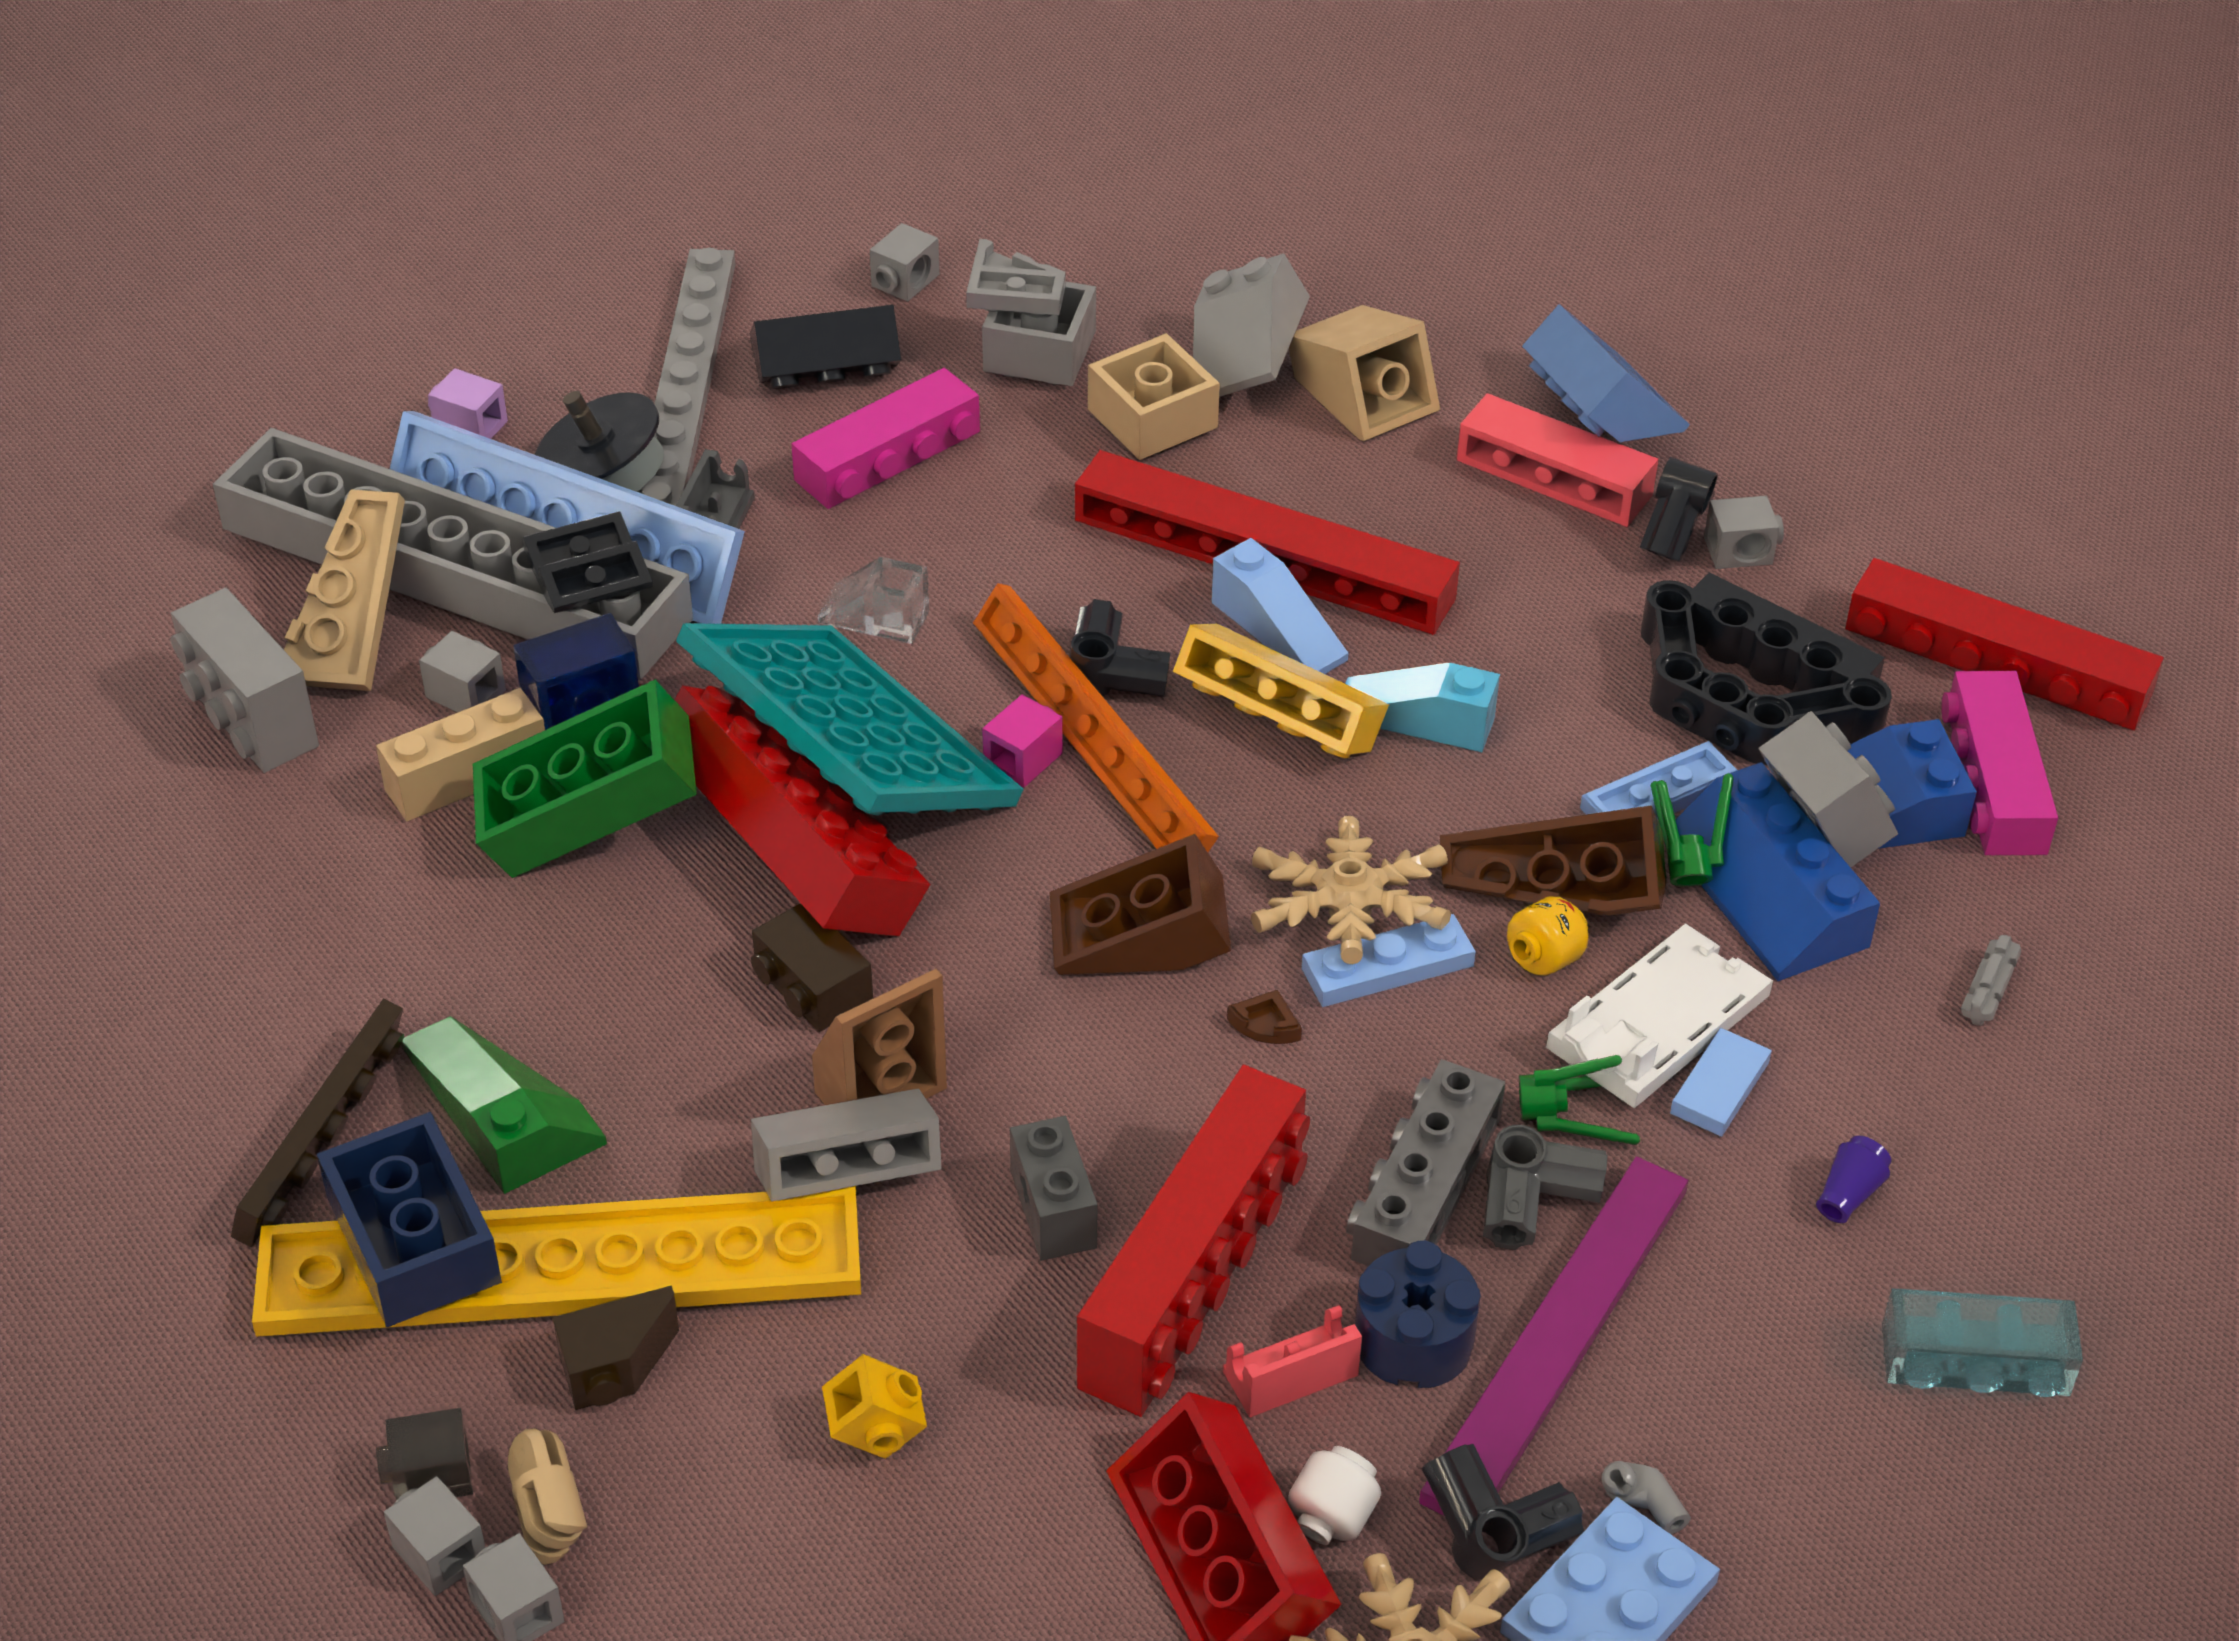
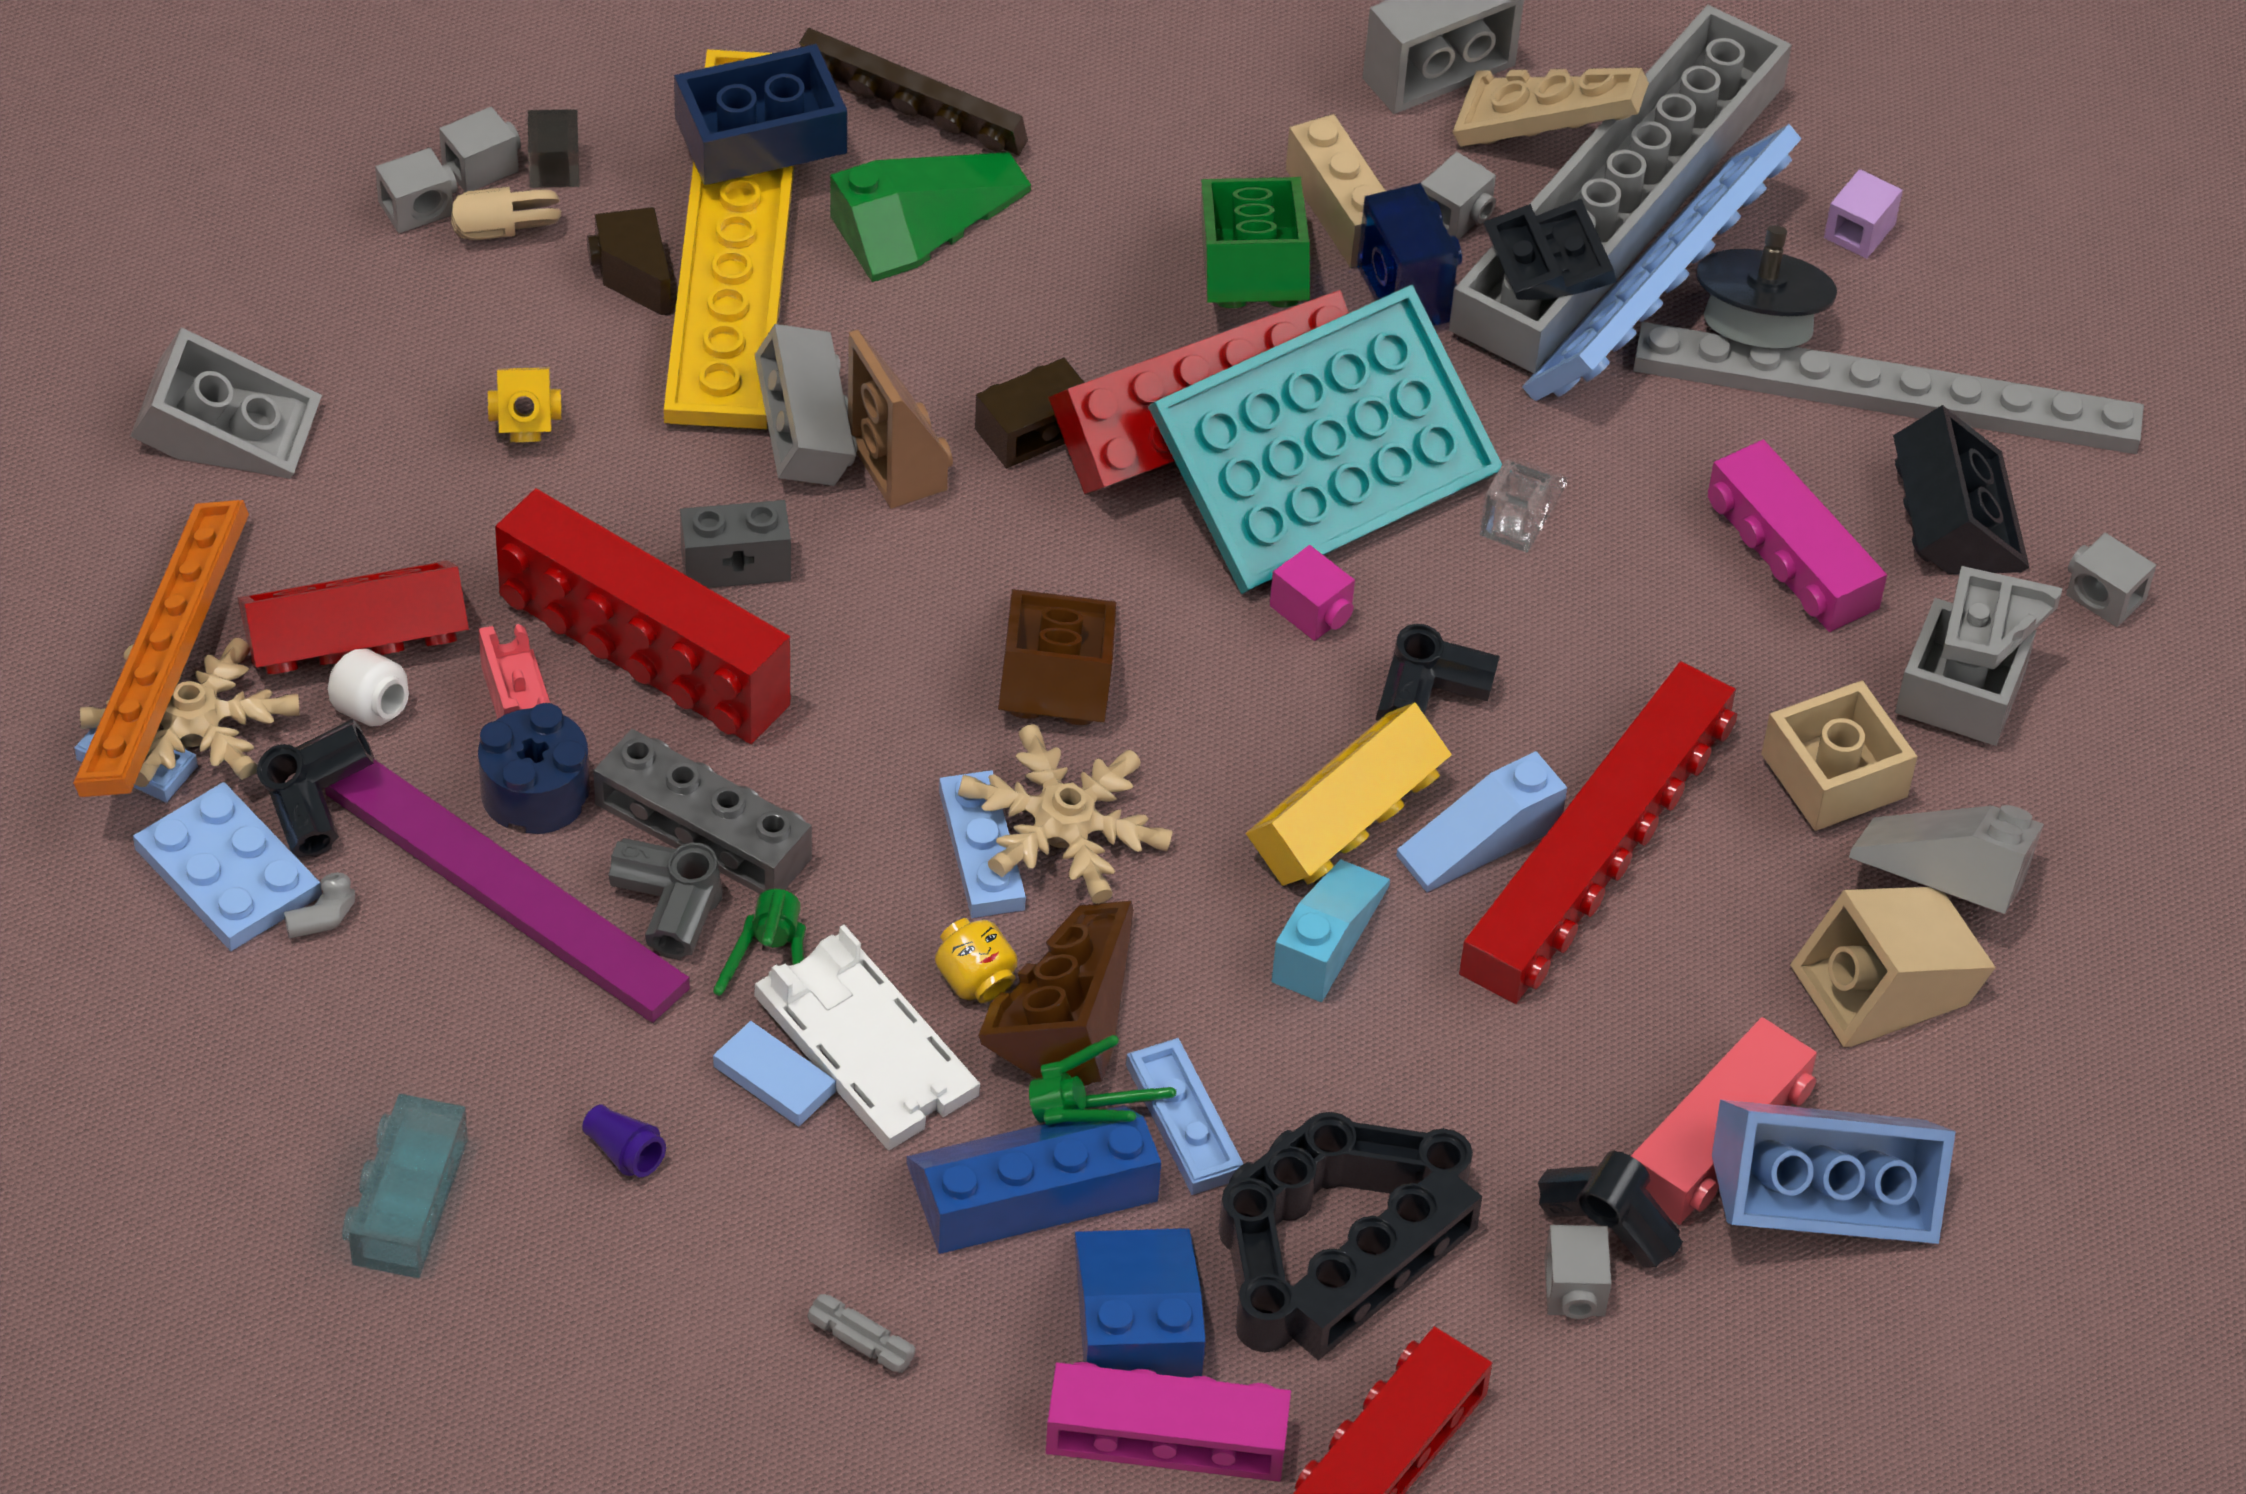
camera: 95 degrees right, 5 degrees up
(716, 493) = (1693, 389): dark grey hinge -> none
(1090, 722) = (1322, 647): orange tile -> none
(1265, 1019) = (924, 740): reddish brown tile -> none
(1832, 786) = (1097, 1198): light grey brick -> none

